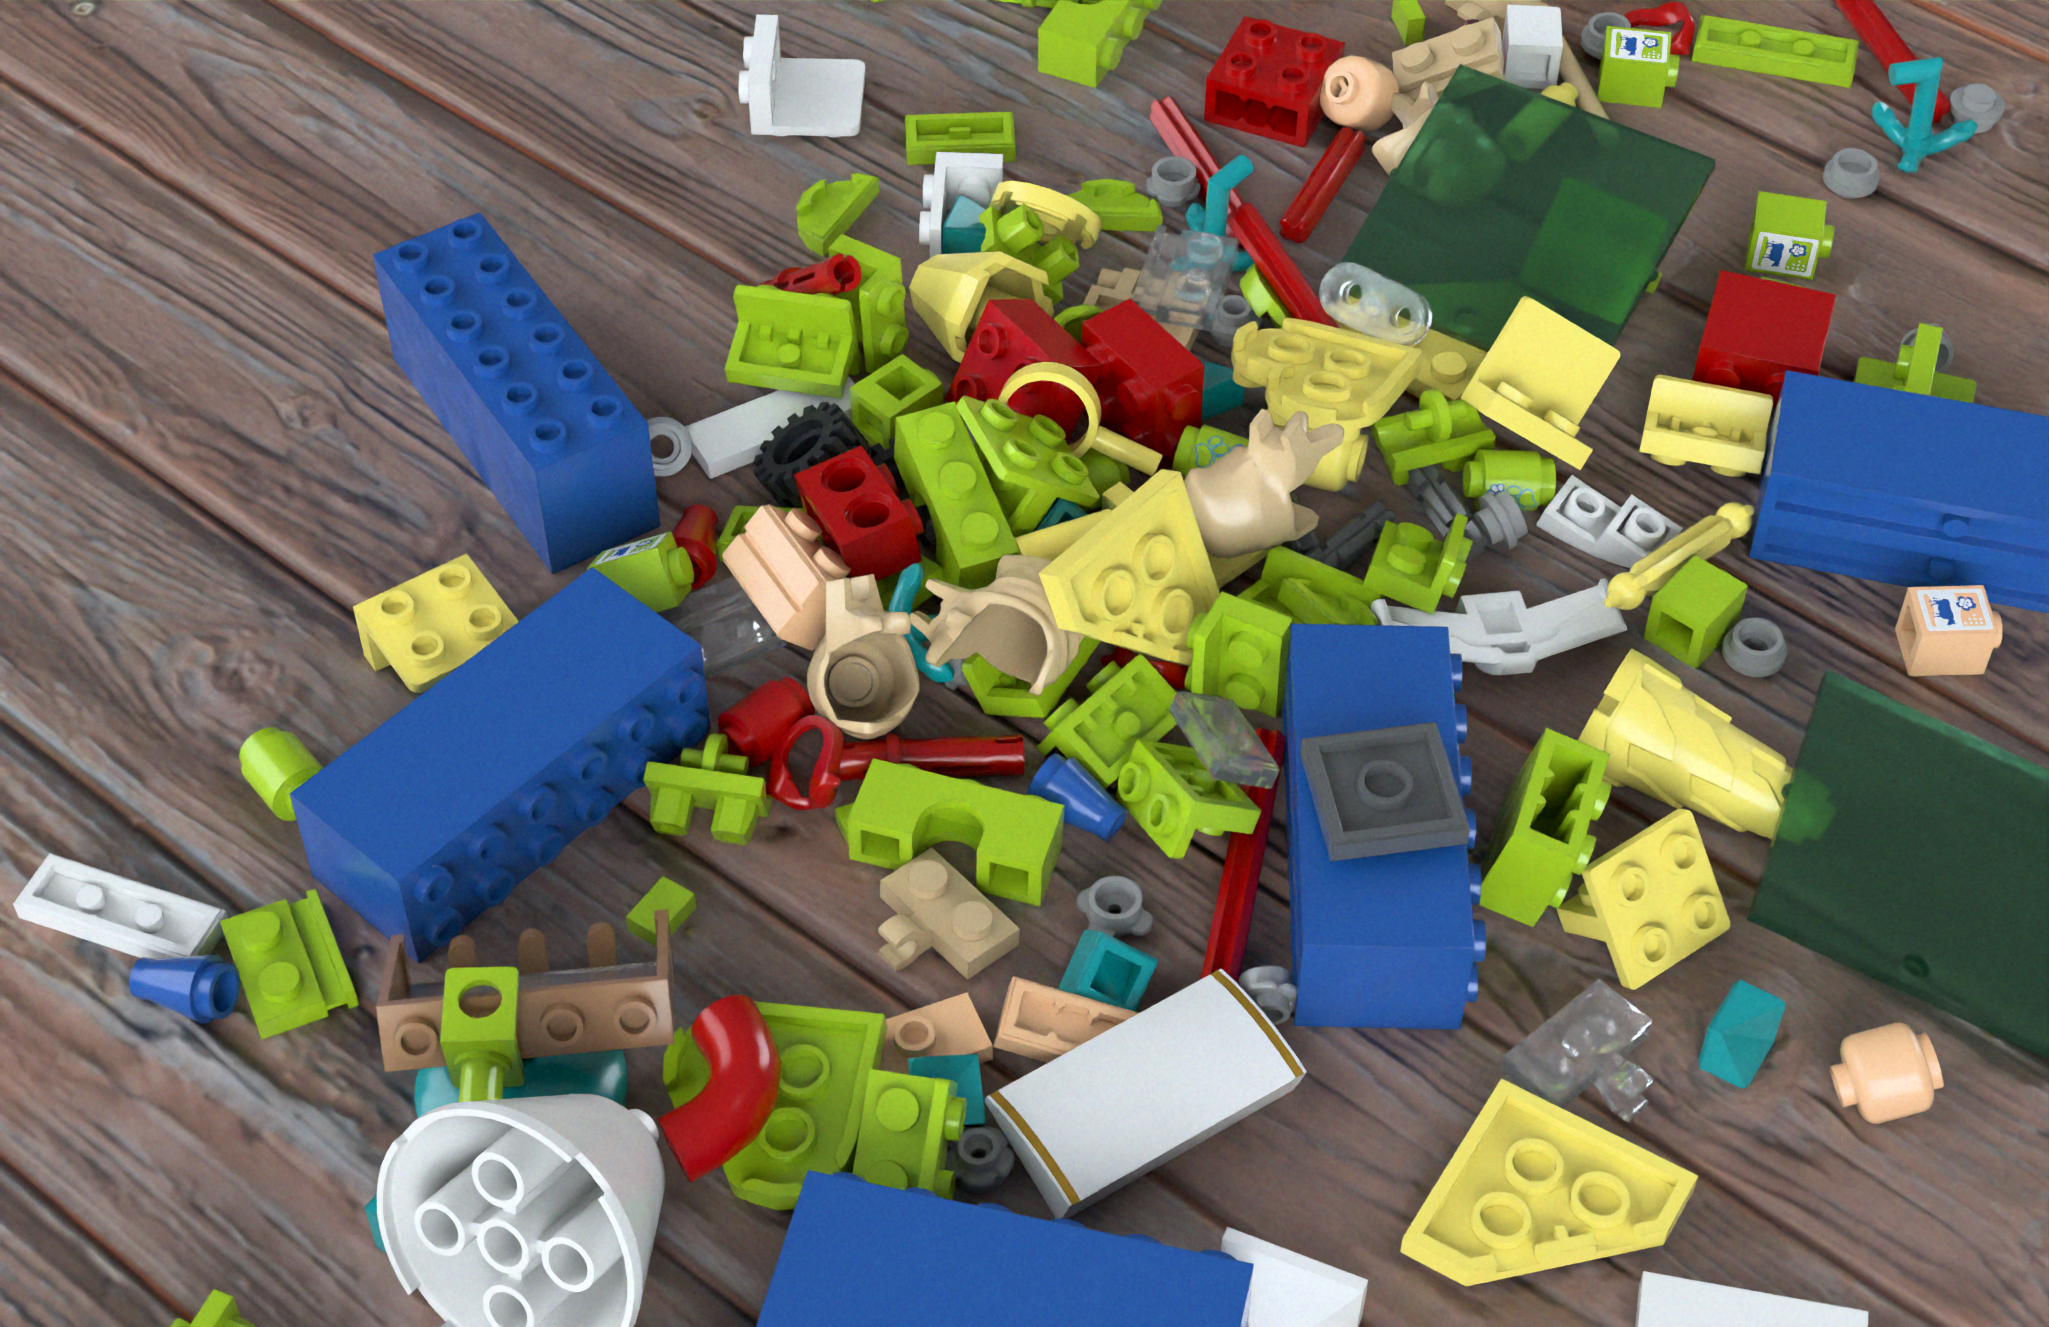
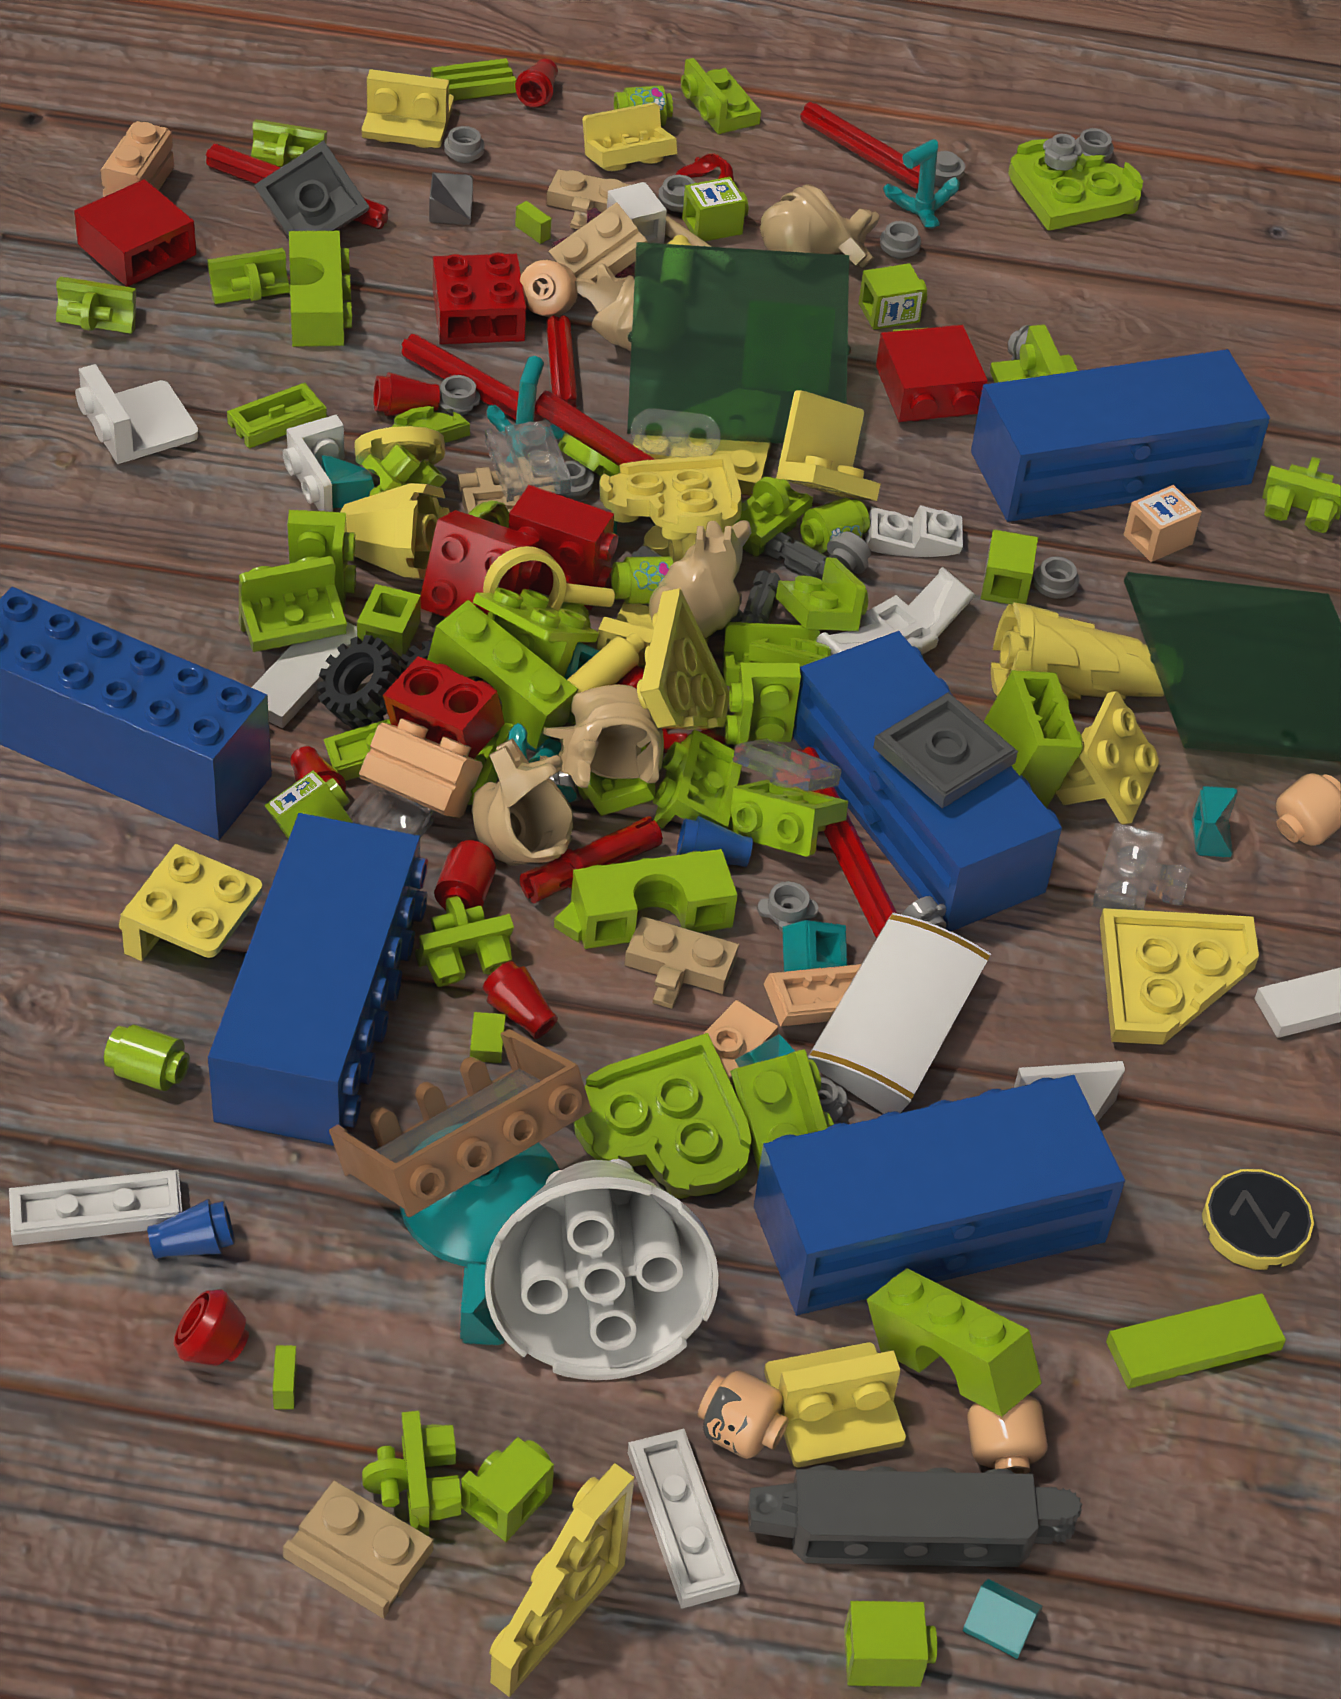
camera: 35 degrees left, 0 degrees up
(114, 1101) = (211, 1330): none -> red cone
(155, 1190) = (284, 1377): none -> lime piece
(288, 964) = (255, 1182): lime plate -> none
(481, 1051) = (479, 1167): lime bracket -> none
(721, 881) = (519, 998): none -> red cone
(738, 1091) = (657, 1117): red cylinder -> none
(820, 277) = (288, 550): red pin -> none
(825, 777) = (543, 896): red piece -> none
(832, 208) = (221, 501): lime tile -> none
(1105, 157) = (398, 394): none -> red cone
(1658, 567) = (978, 535): light yellow wheel -> none
(1706, 425) = (931, 443): light yellow bracket -> none
(1732, 124) = (810, 224): none -> tan piece
(1775, 51) = (792, 169): lime tile -> none

